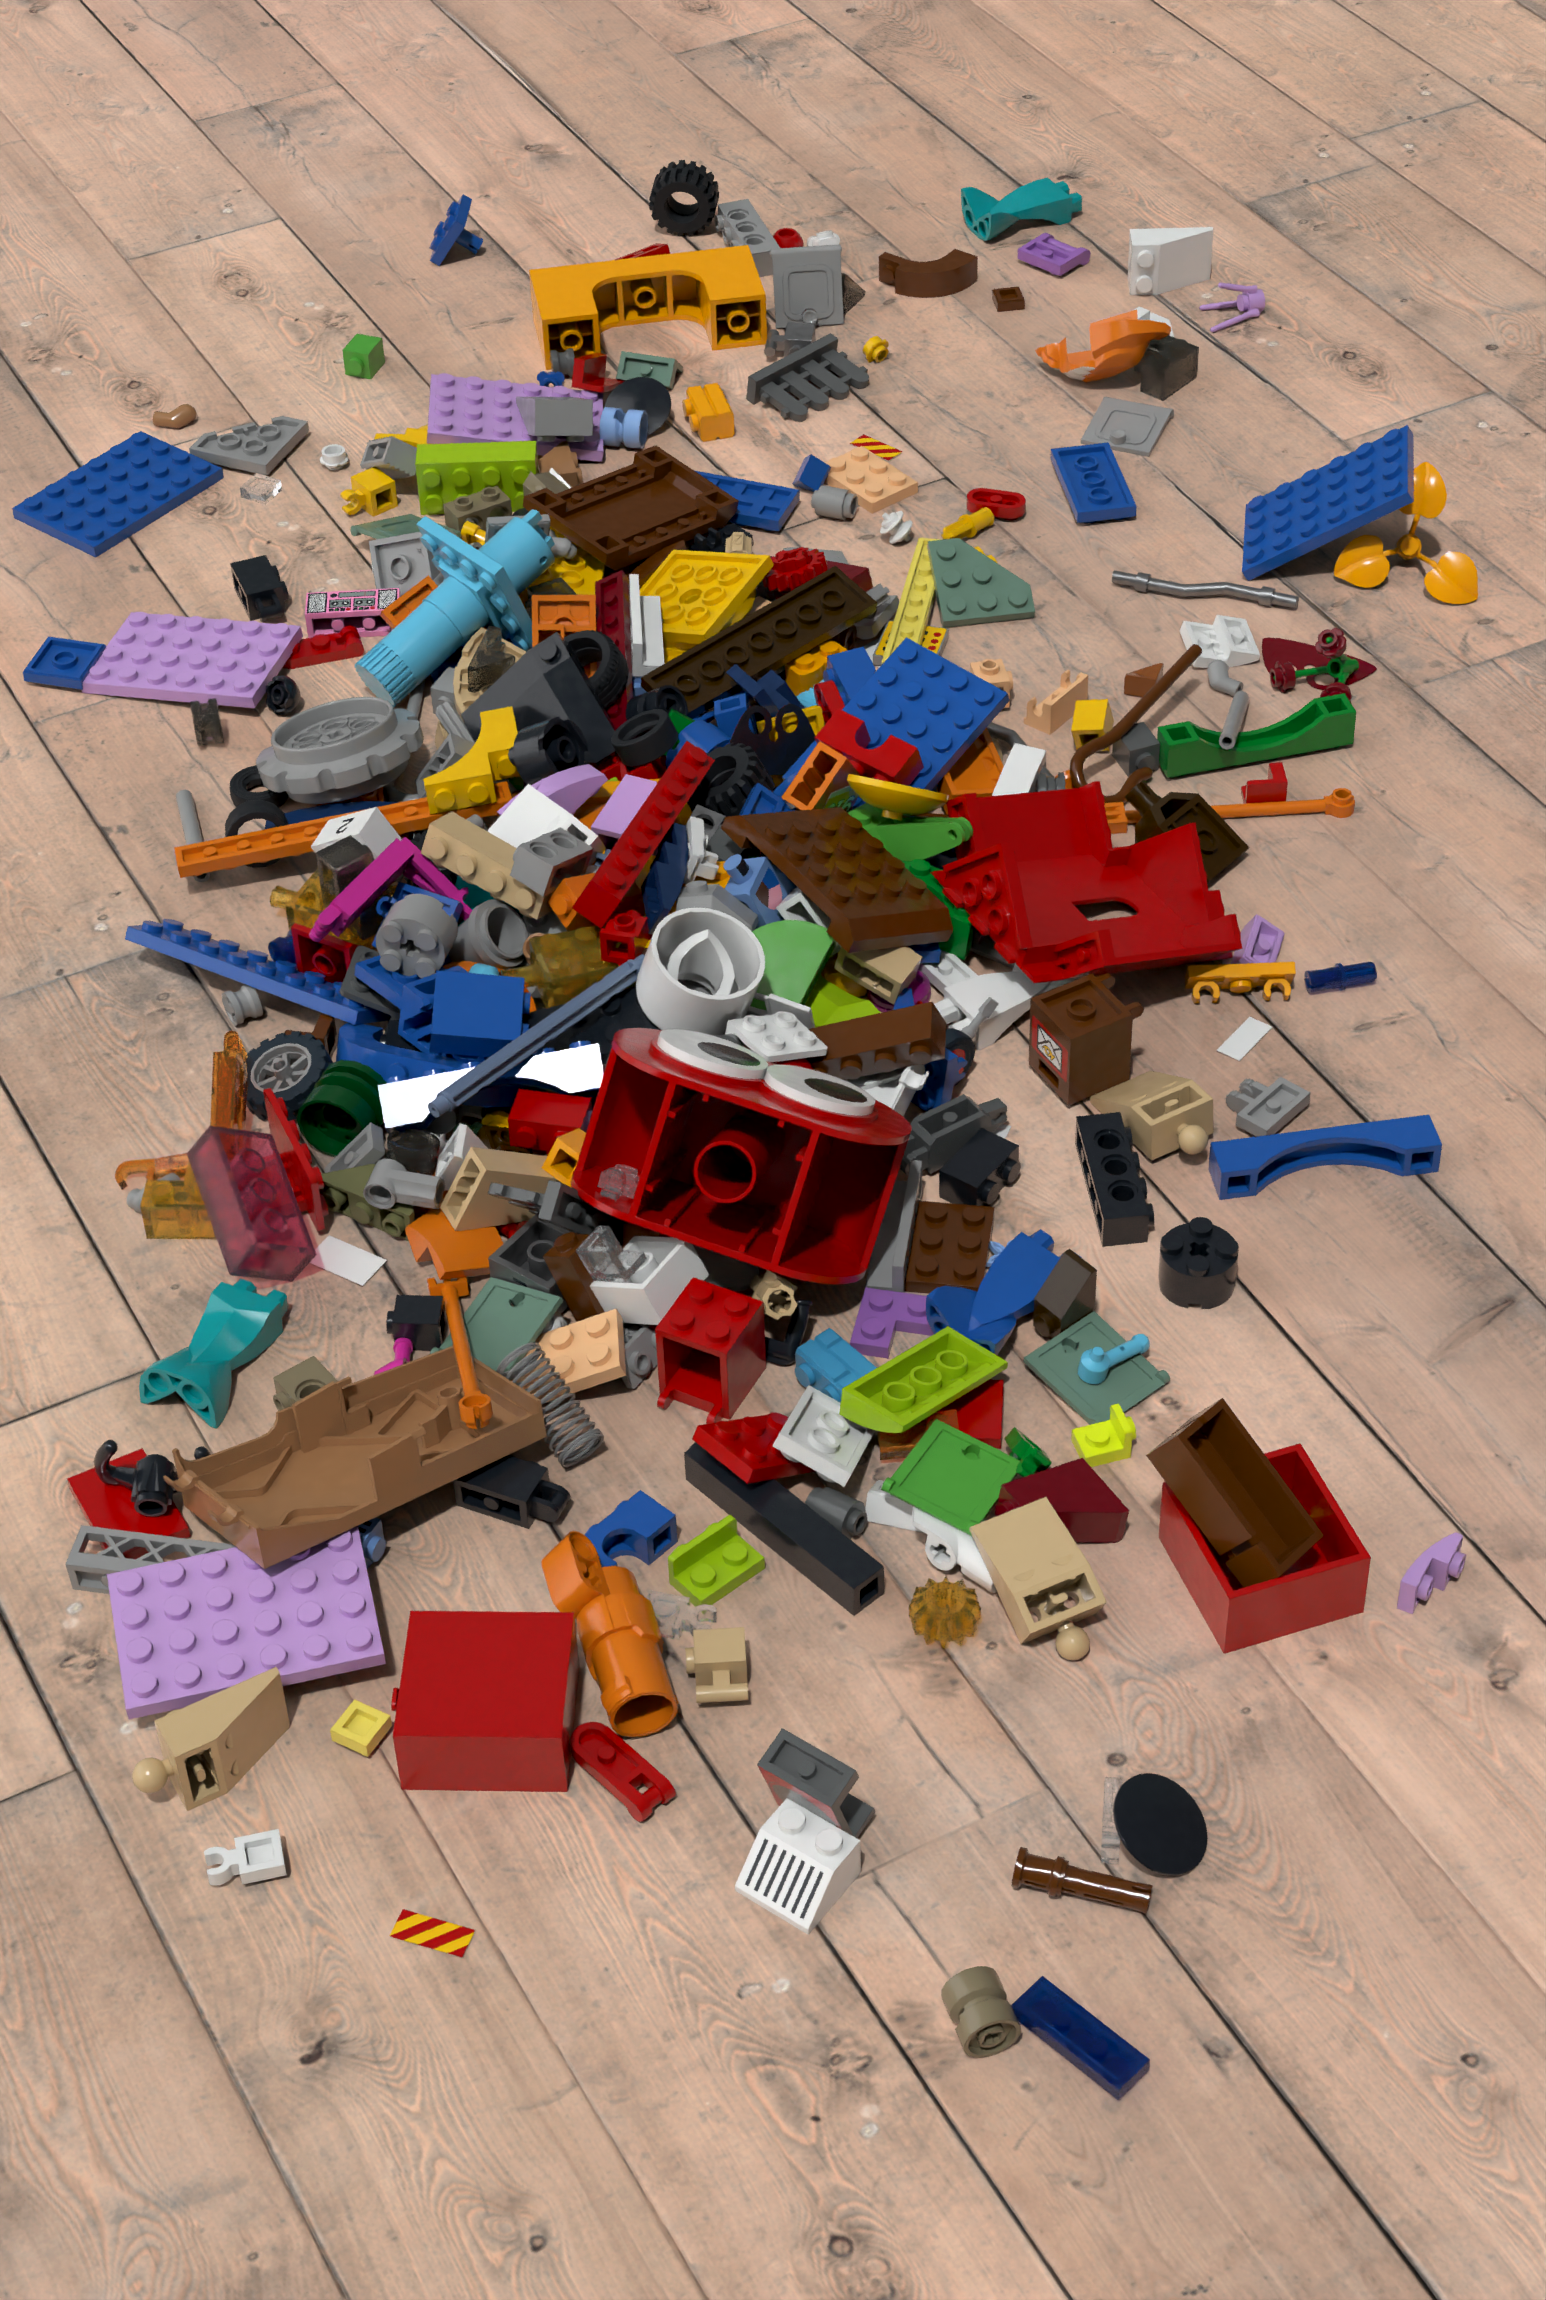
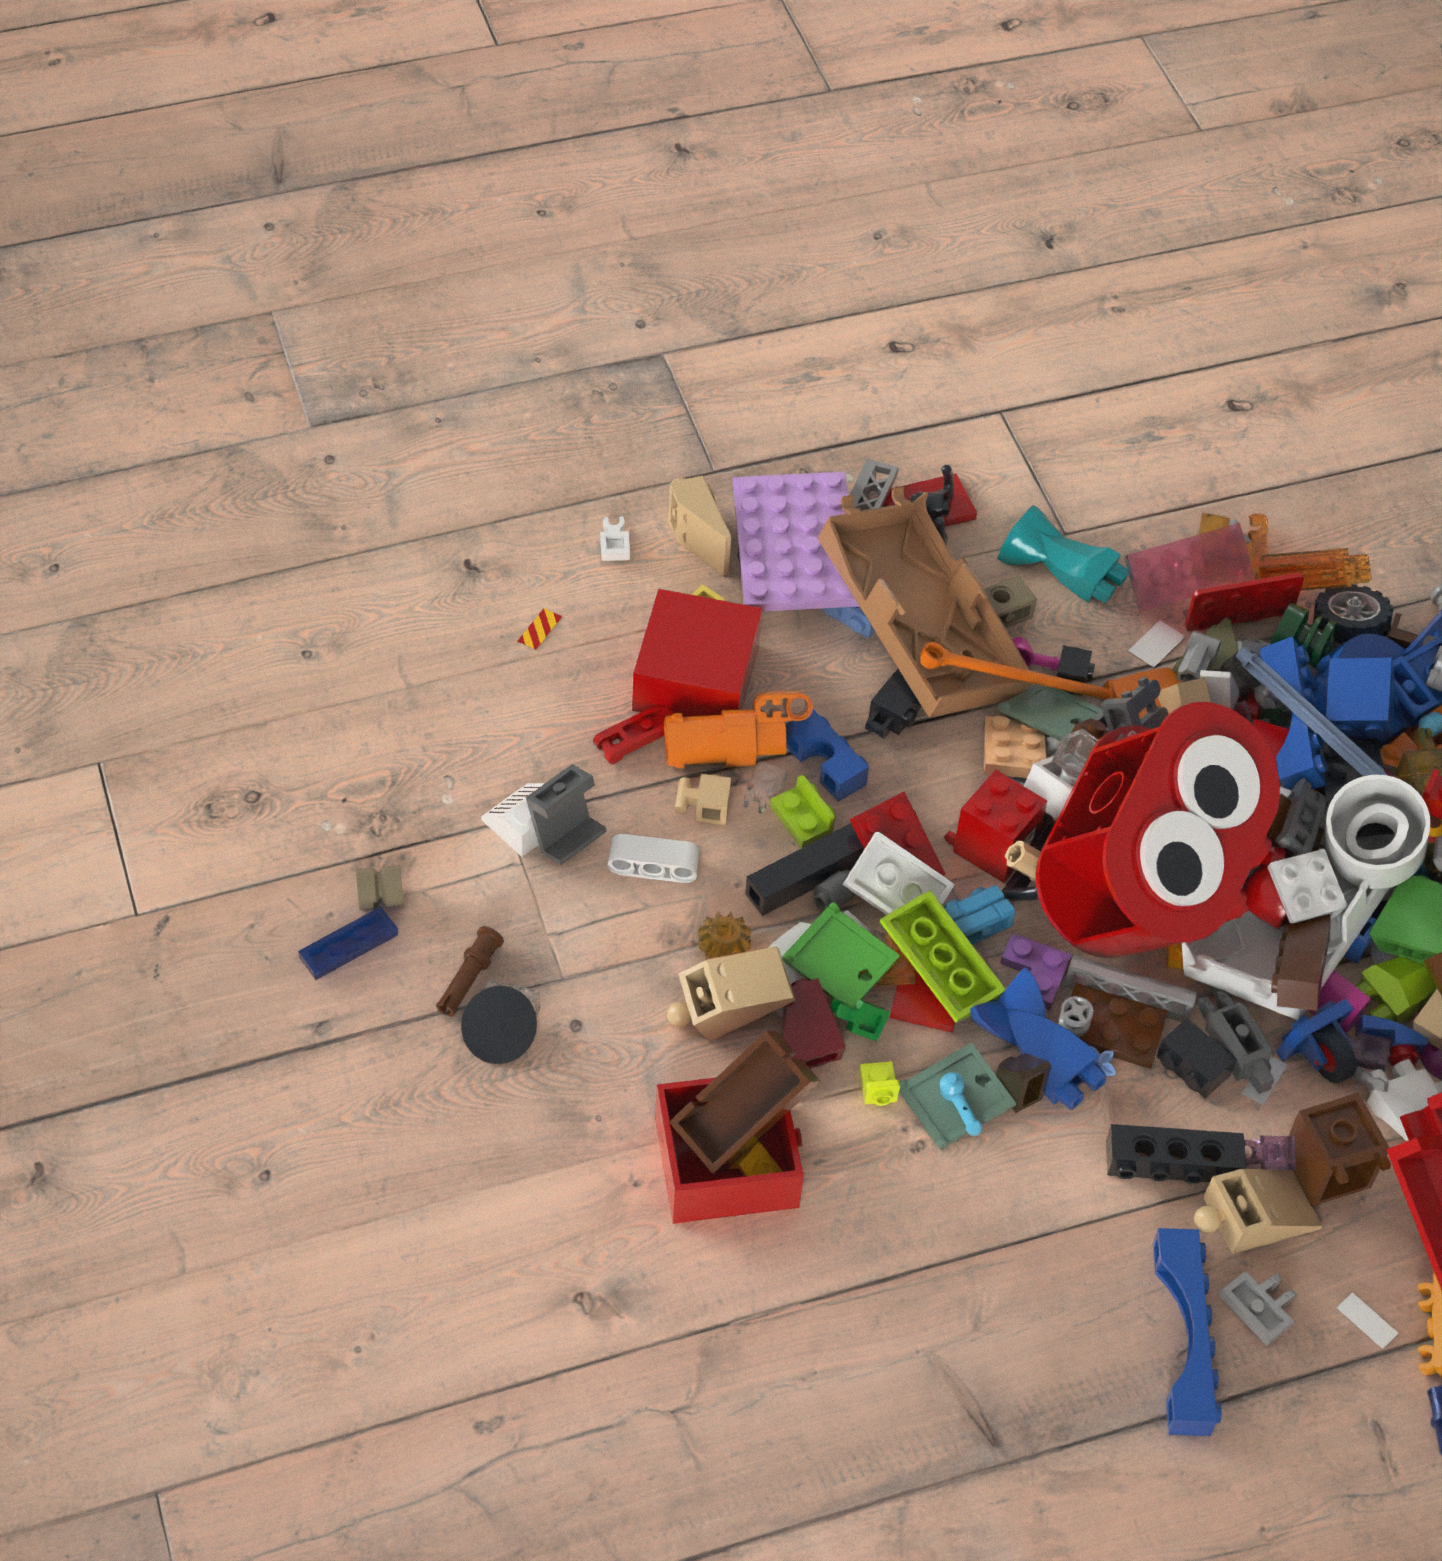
camera: 95 degrees right, 10 degrees up
(528, 1364) = (997, 705): light grey piece -> none
(836, 1706) = (654, 858): none -> white beam
(969, 1260) = (1077, 1008): none -> light grey wheel
(1091, 1092) = (1273, 1152): none -> clear purple plate
(1198, 1264) = (1056, 1189): black brick -> none
(1431, 1570) = (694, 1277): lavender slope -> none

